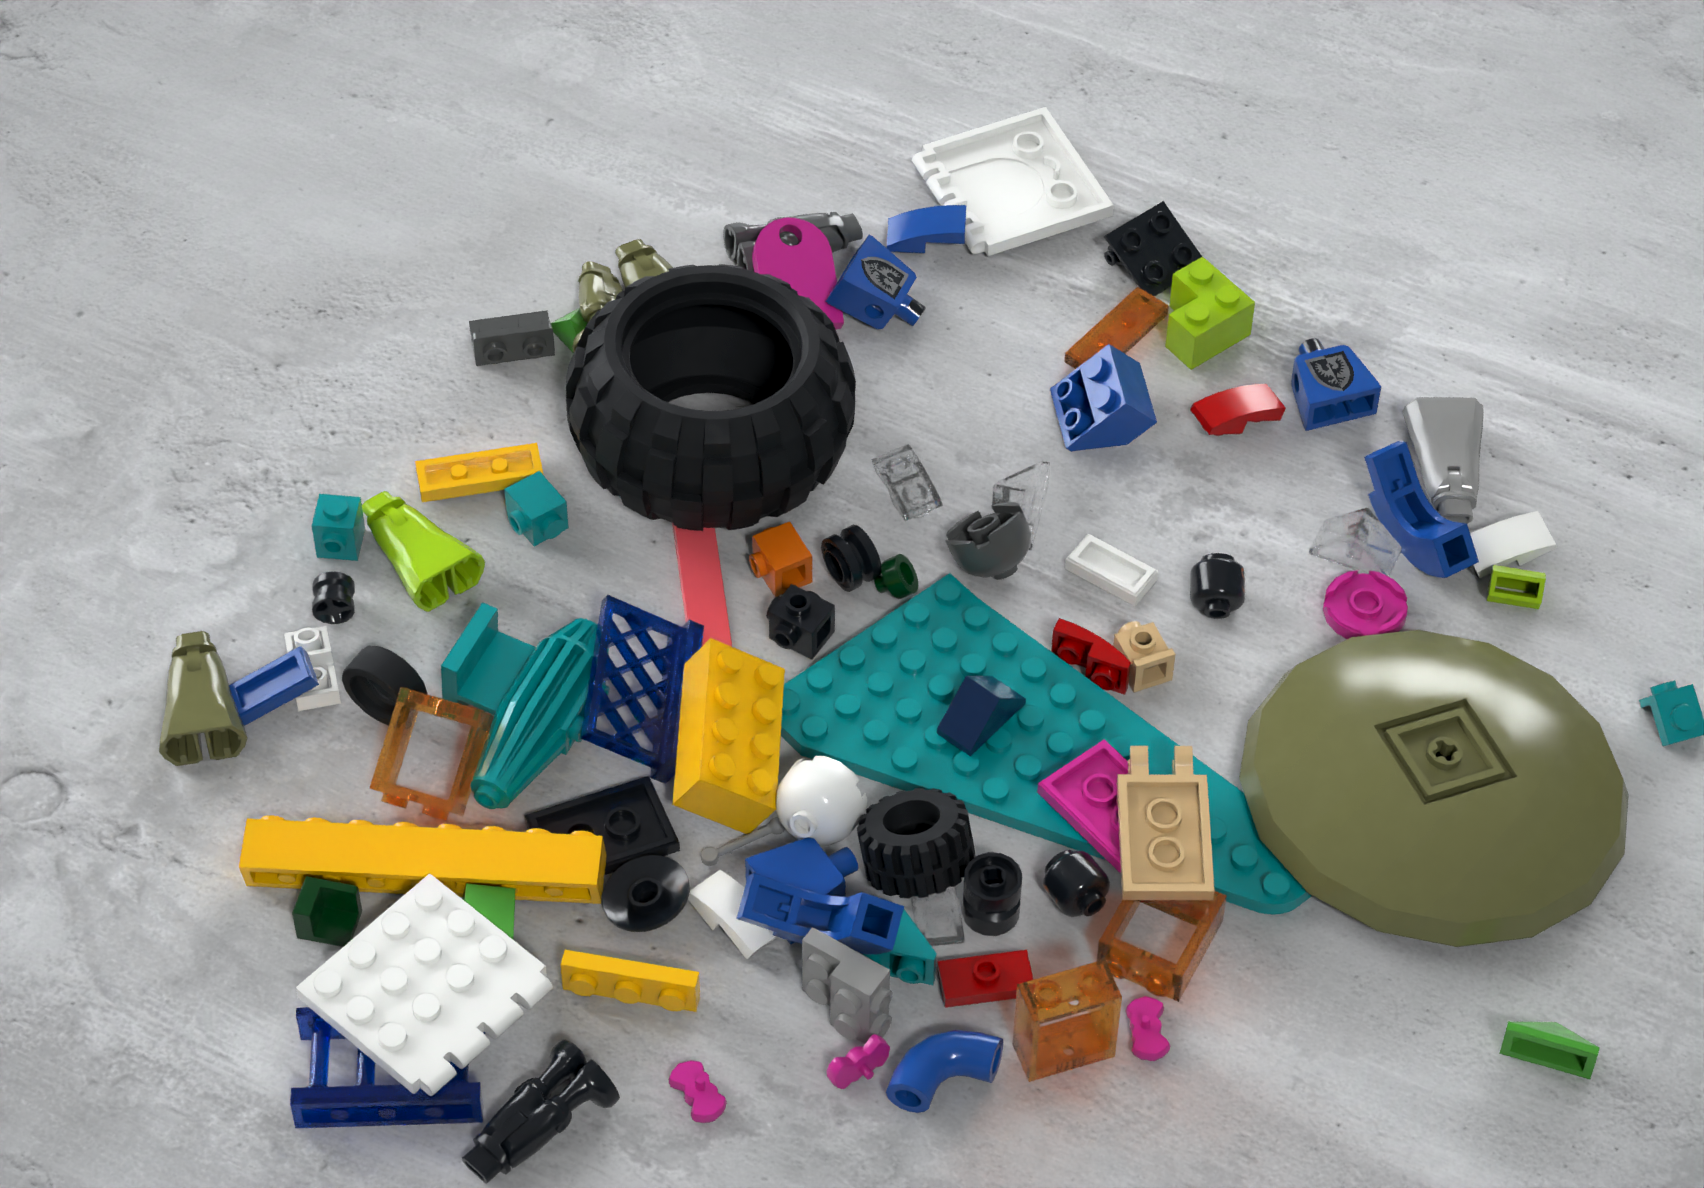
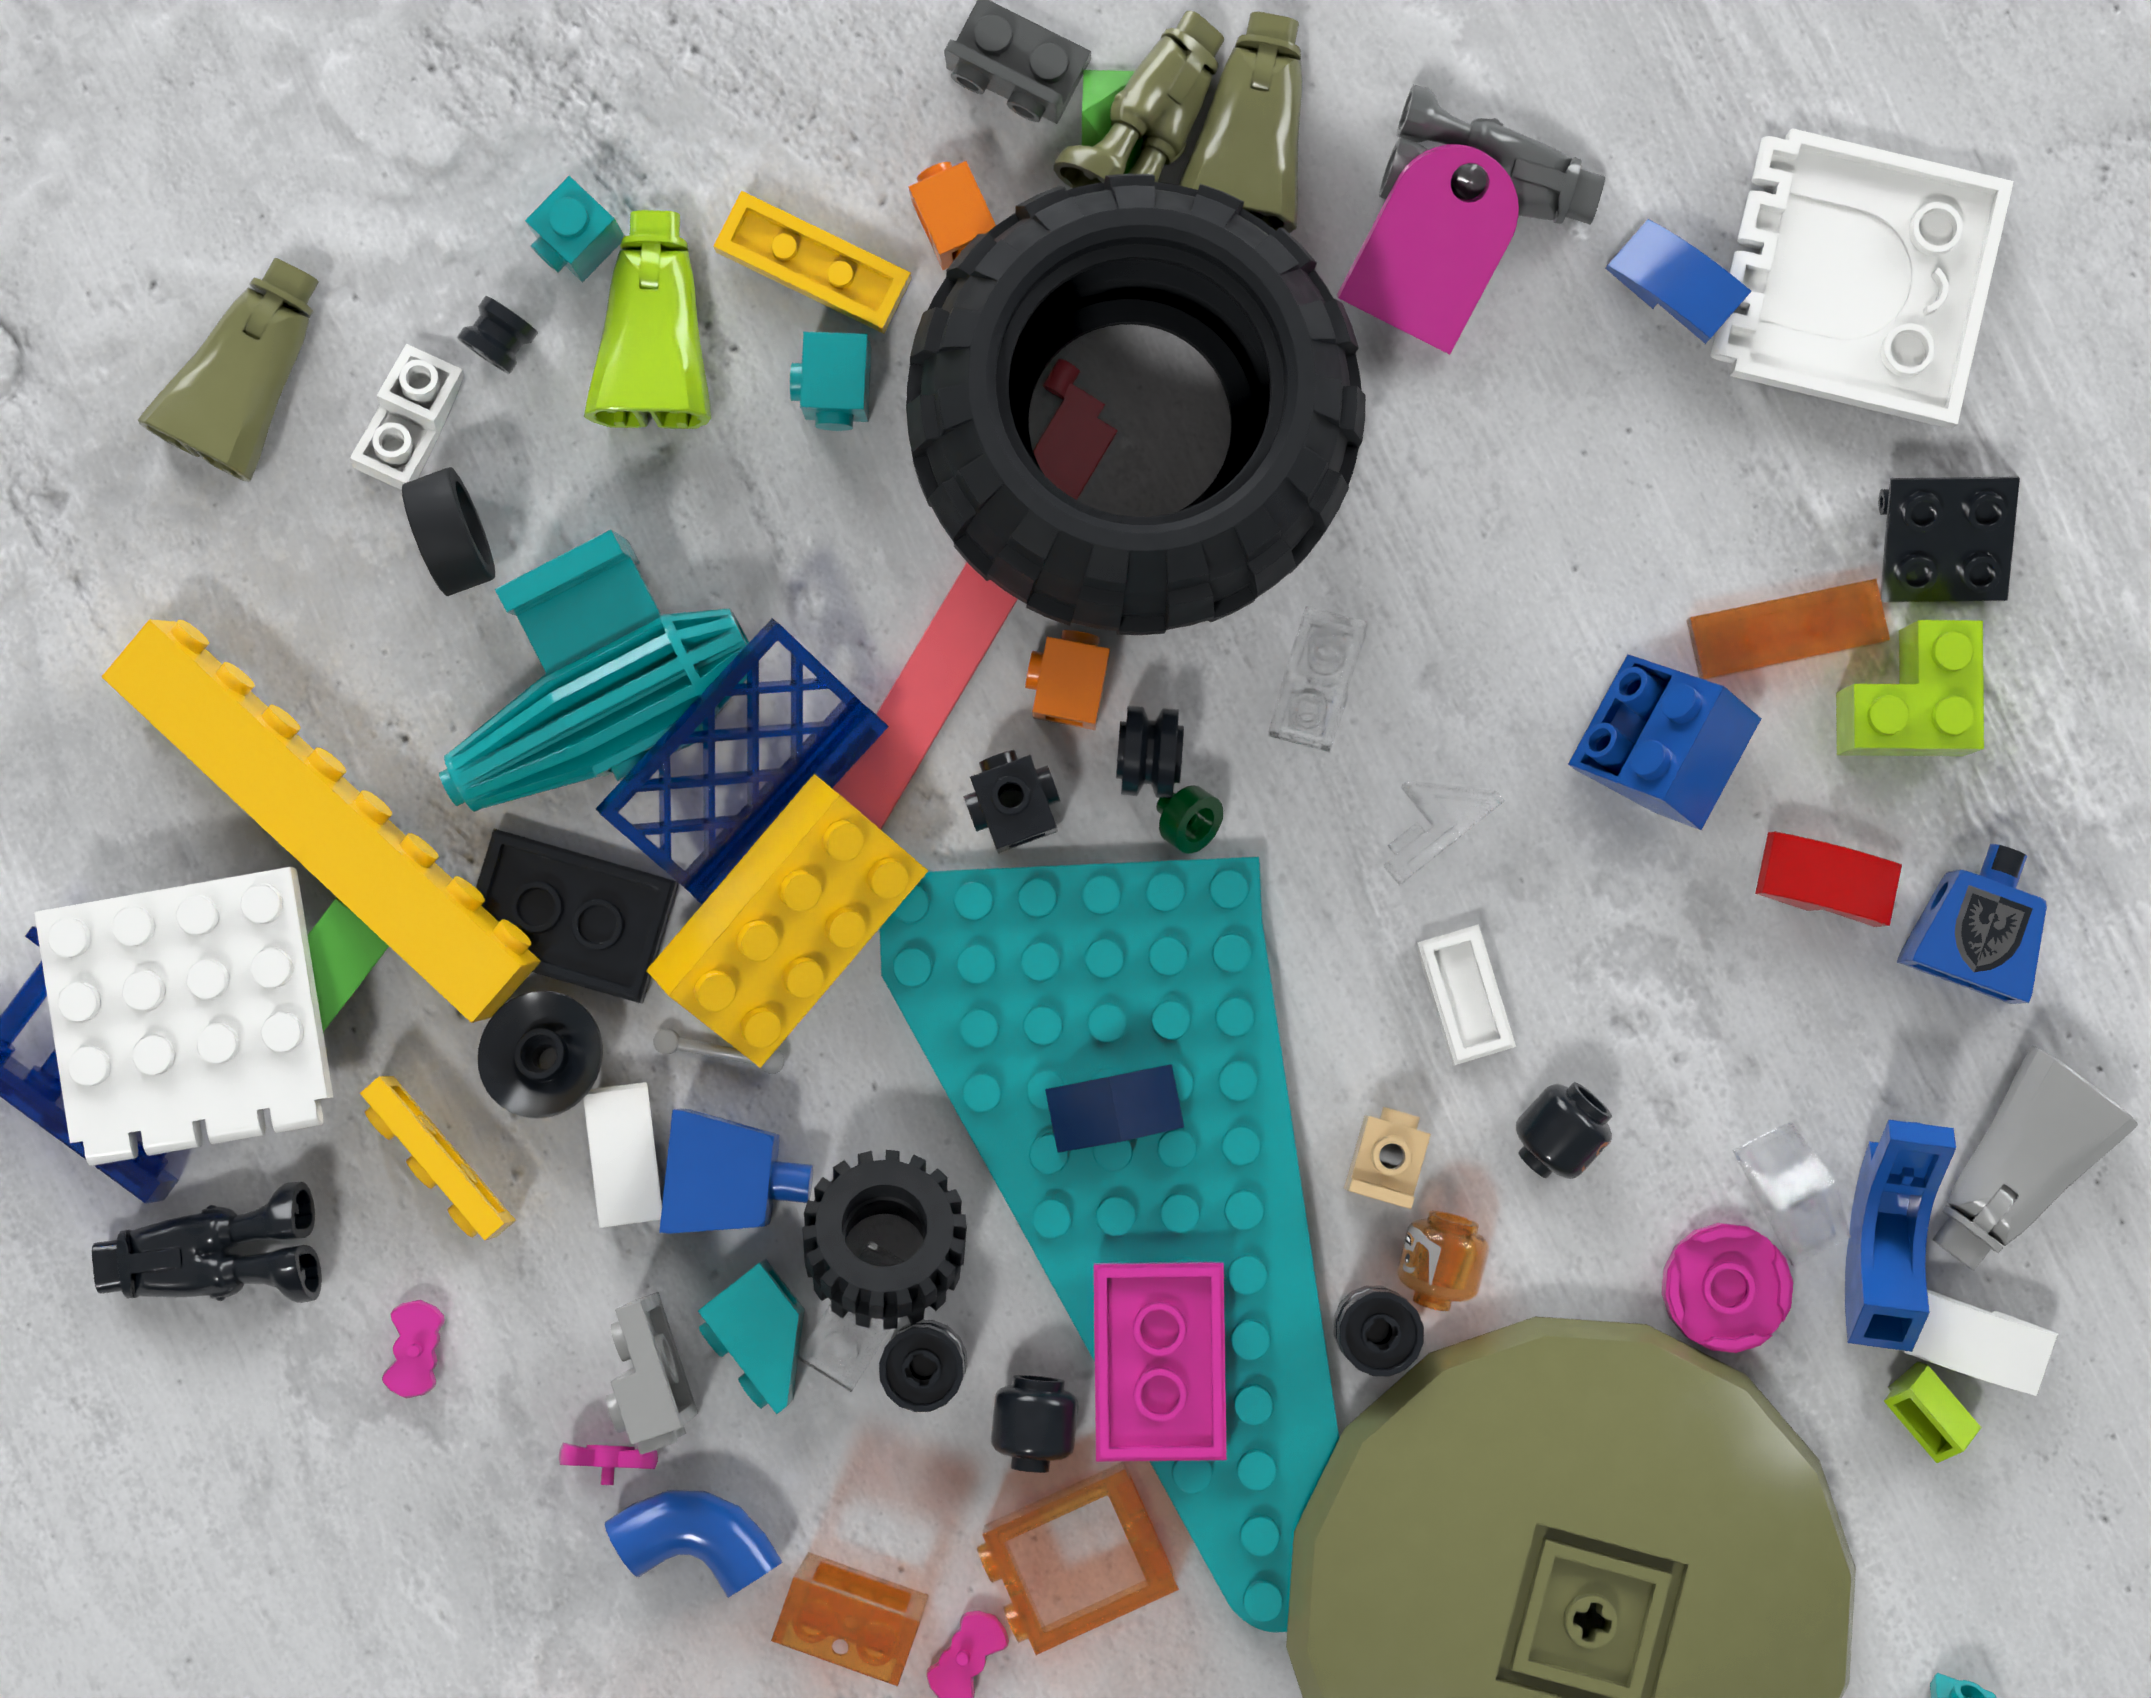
camera: 45 degrees right, 35 degrees up
(273, 685) = (335, 419): blue tile -> none
(327, 911) = (175, 798): dark green panel -> none
(396, 743) = (469, 654): clear orange window -> none
(536, 409) = (950, 209): none -> orange brick
(820, 800) = (809, 1102): white cylinder -> none
(857, 921) = (689, 1291): blue arch -> none
(876, 287) = (1525, 337): blue torso -> none
(983, 977) = (841, 1453): red plate -> none
(991, 543) = (1333, 858): dark grey cylinder -> none
(1102, 661) = (1325, 1136): red slope -> none
(1164, 830) = (1173, 1459): tan tile -> none
(1212, 722) = (1378, 1330): none -> black wheel
(1213, 675) = (1443, 1260): none -> clear orange head

